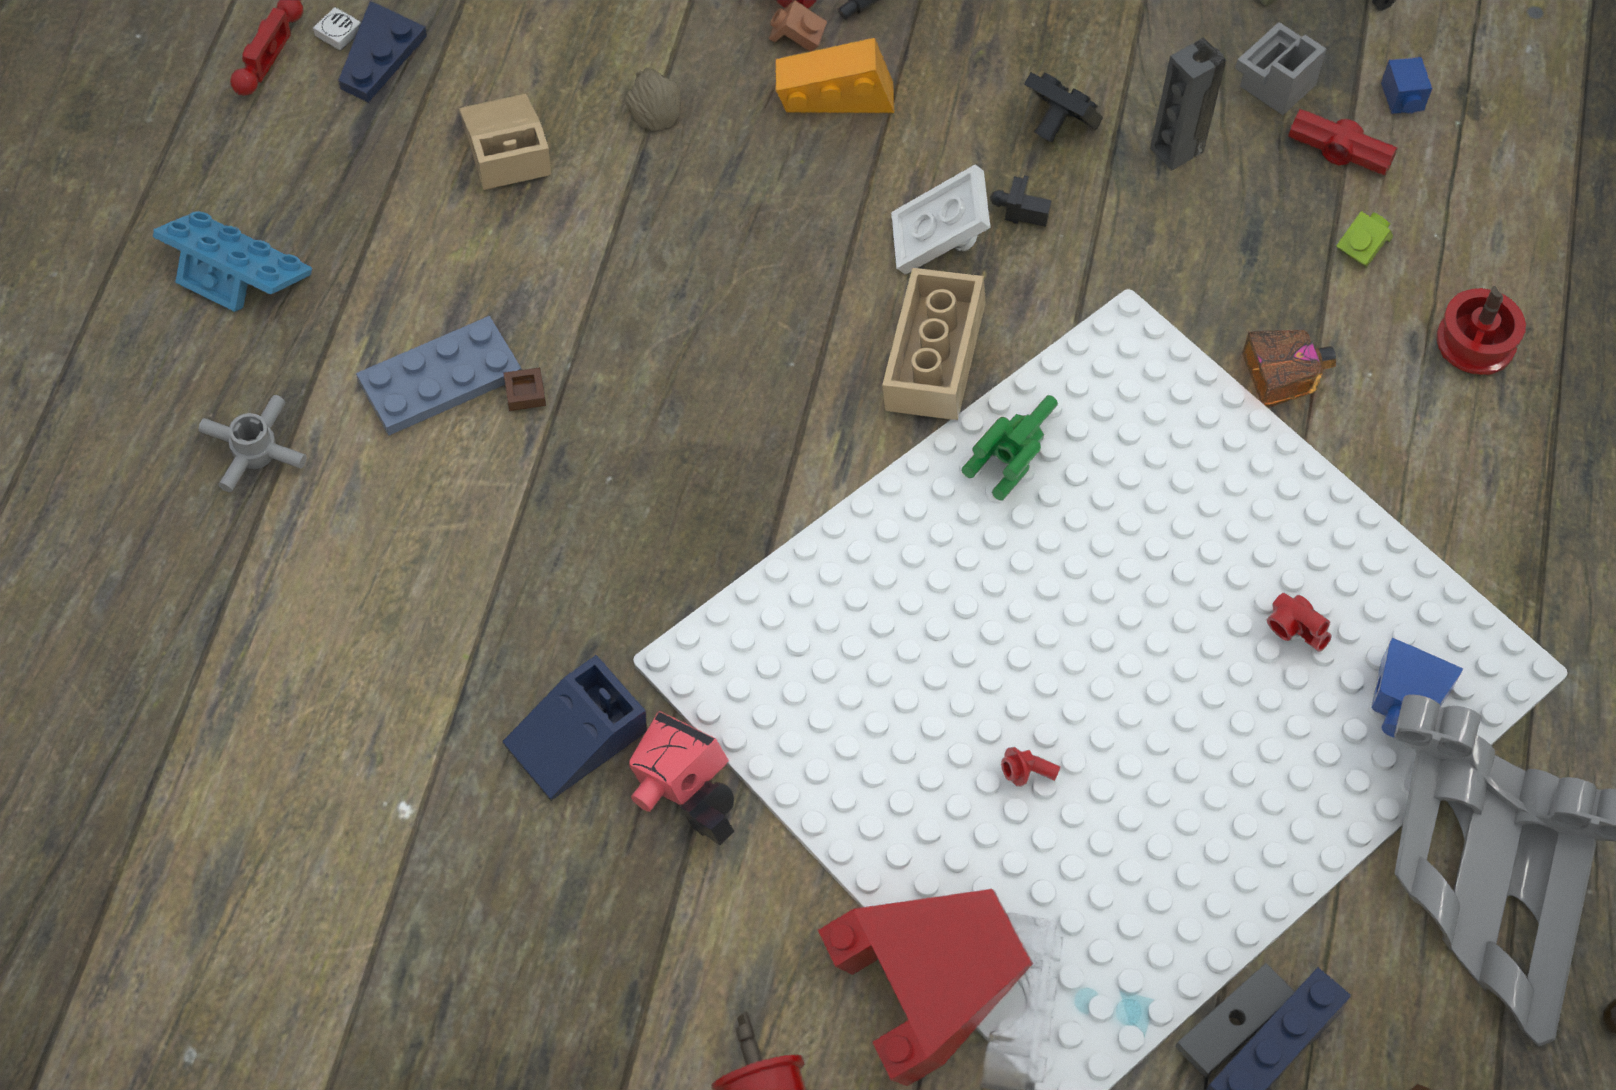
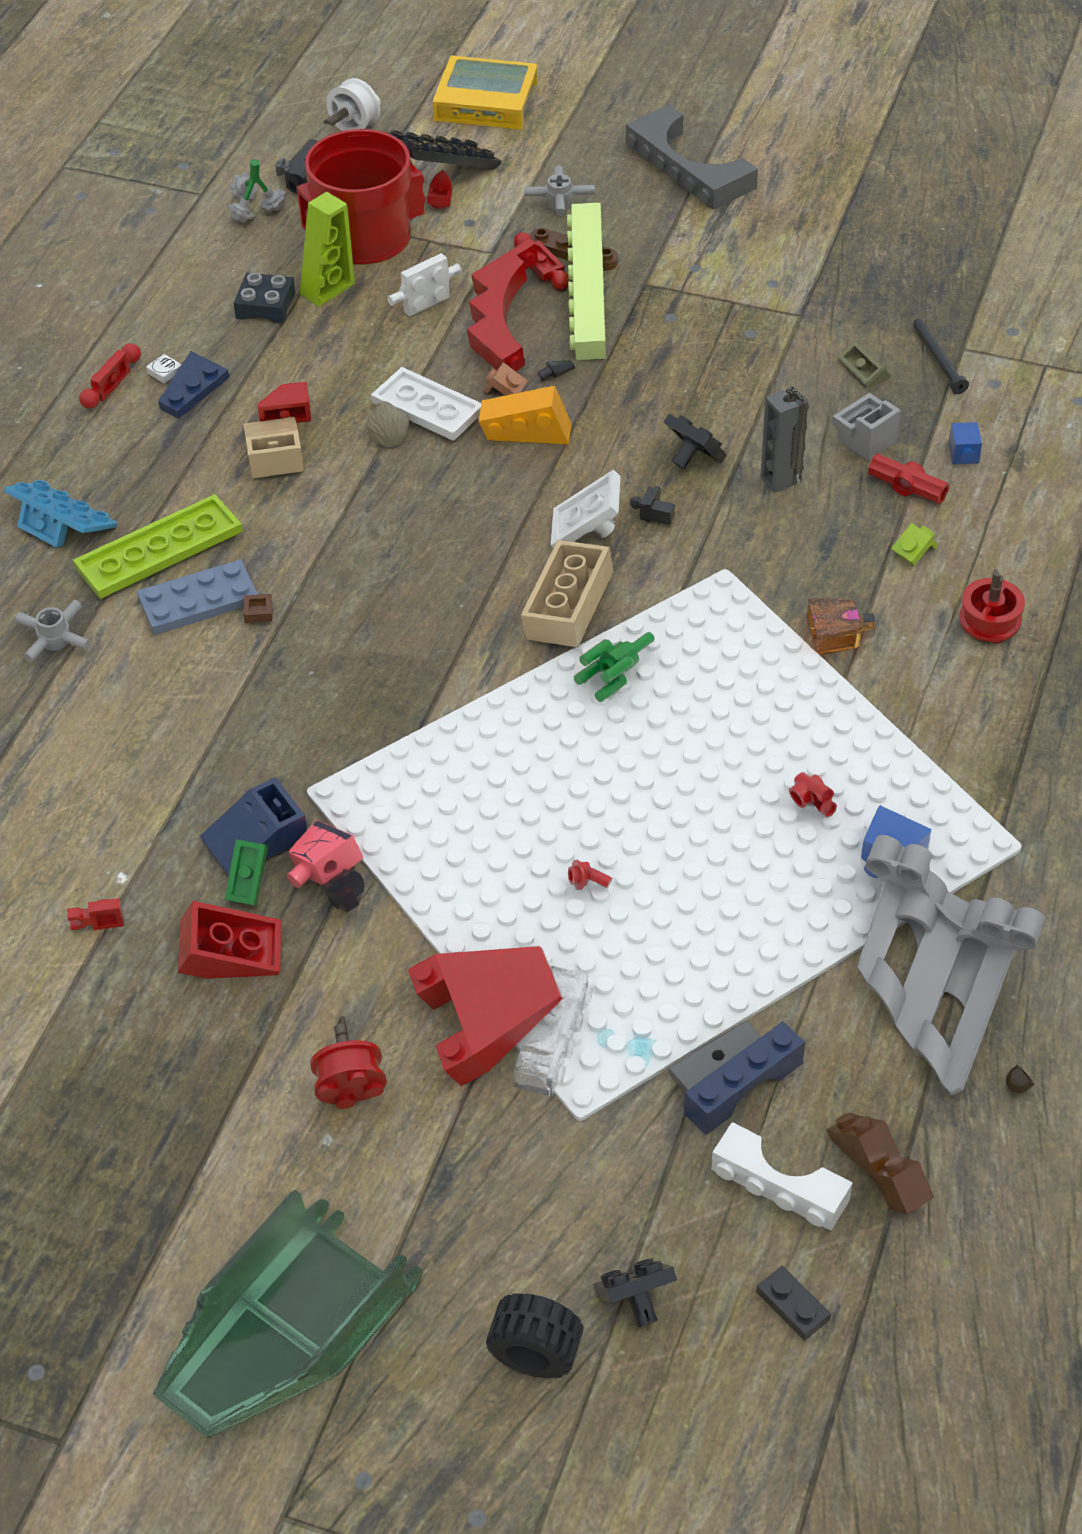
camera: 10 degrees right, 10 degrees down
(373, 303) = (157, 546): none -> lime plate
(386, 875) = (99, 914): none -> red plate
(513, 74) = (286, 402): none -> red slope
(567, 904) = (228, 943): none -> red slope
(576, 797) = (246, 872): none -> green plate
(702, 63) = (428, 403): none -> white plate

